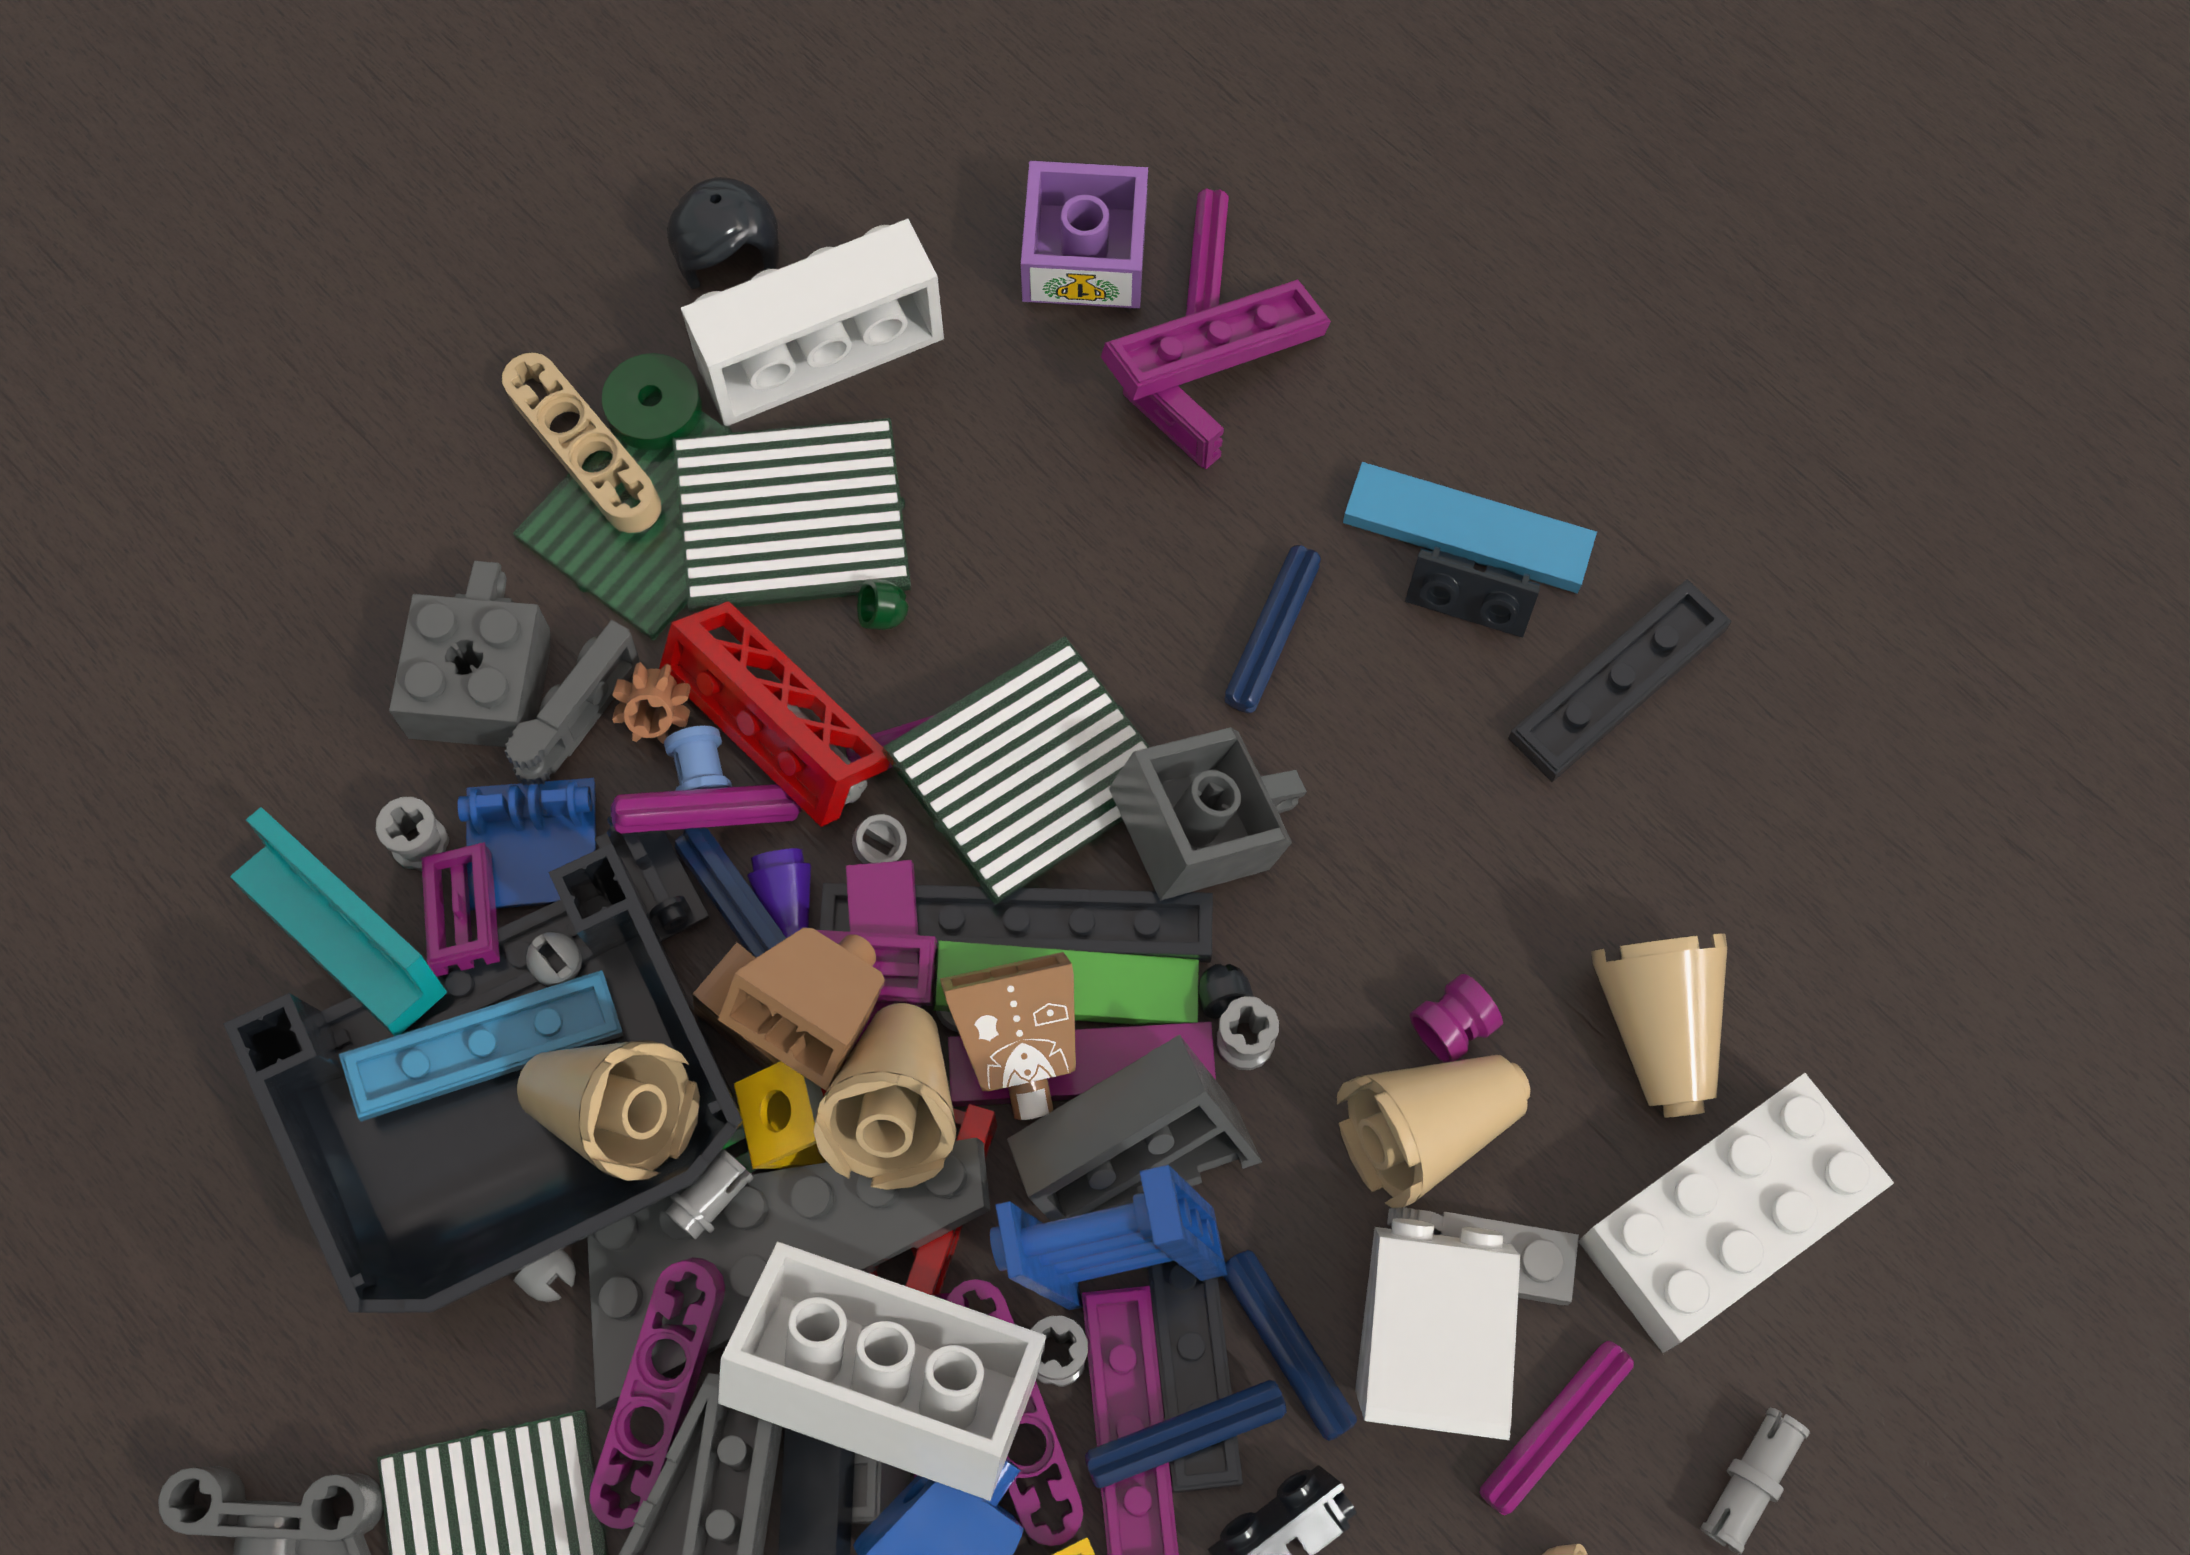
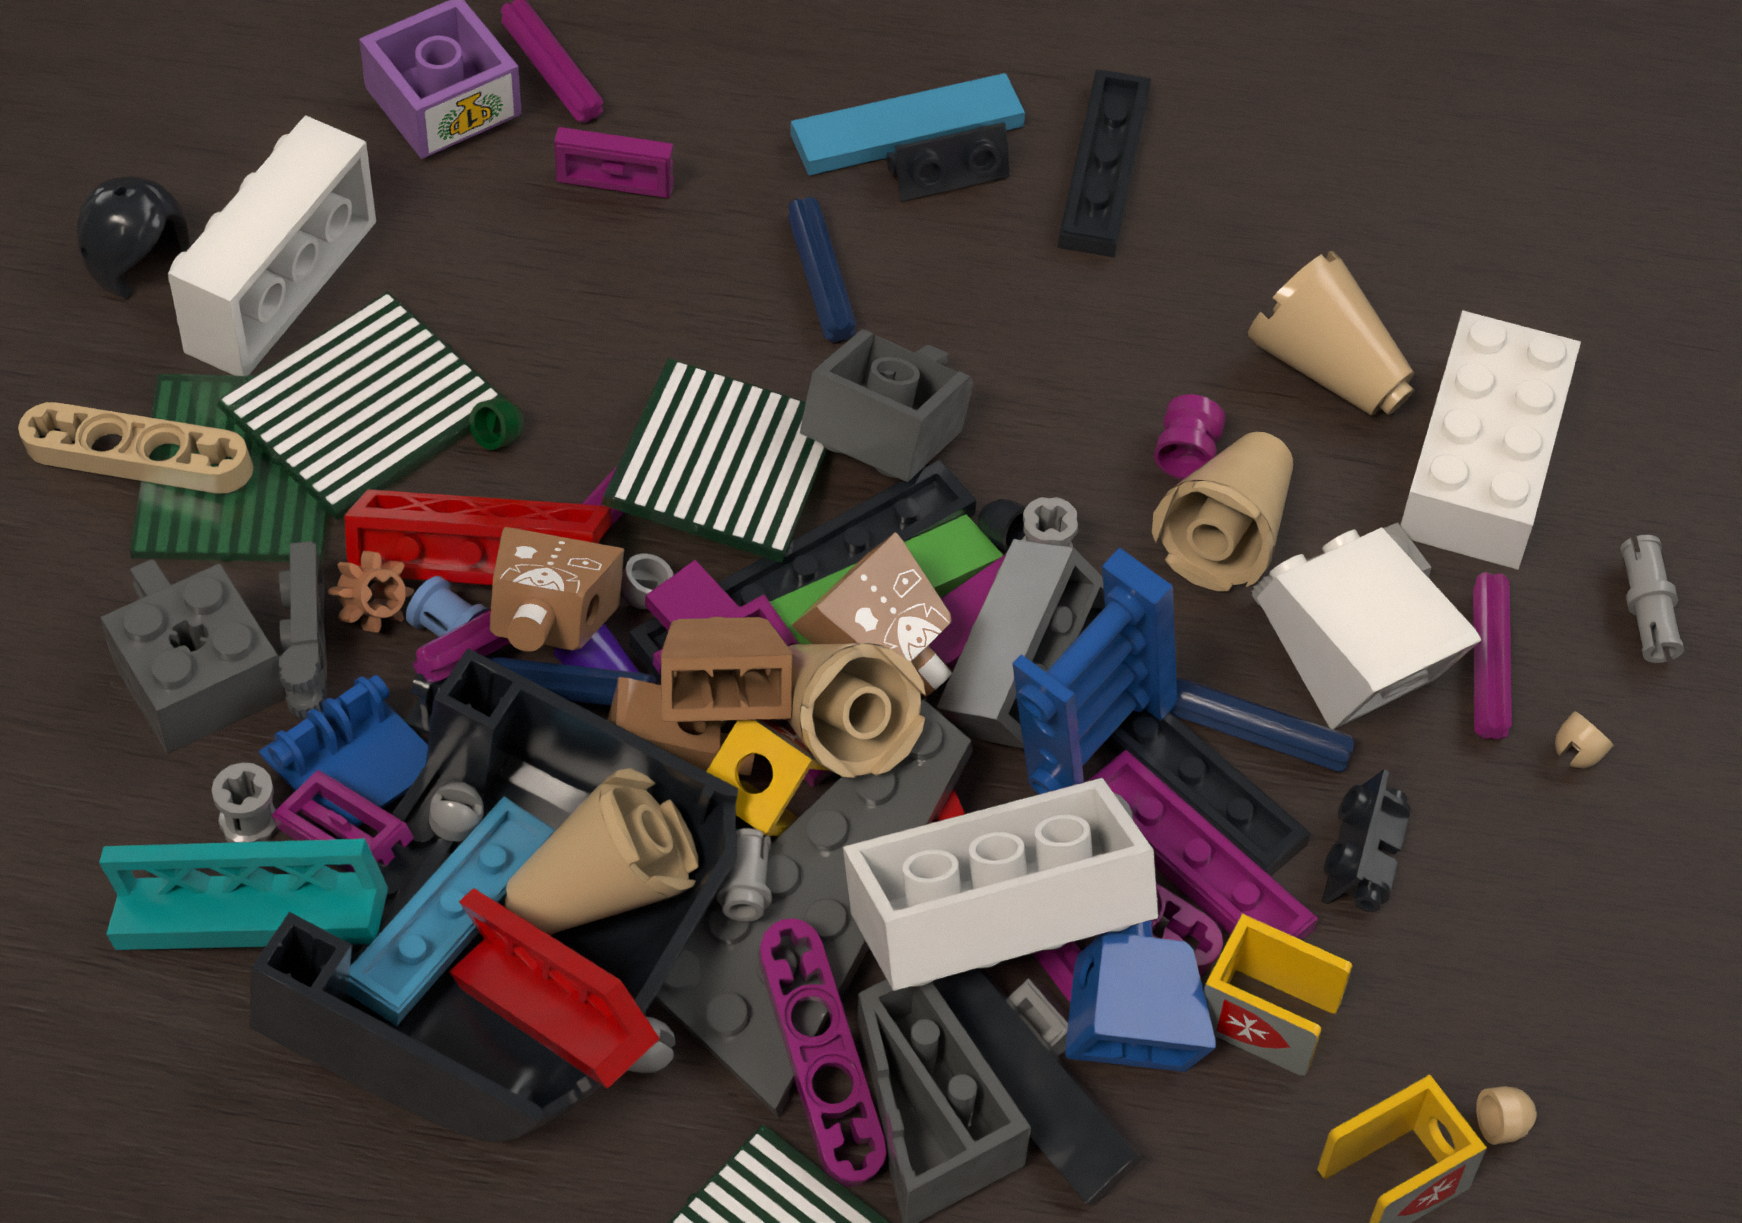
camera: 40 degrees left, 15 degrees down
(460, 1201) = (552, 993): none -> red fence
(645, 378) = (166, 365): dark green piece -> none
(764, 812) = (553, 589): none -> medium nougat torso
(1185, 1434) = (1243, 819): dark blue axle -> none
(1214, 339) = (609, 93): magenta tile -> none

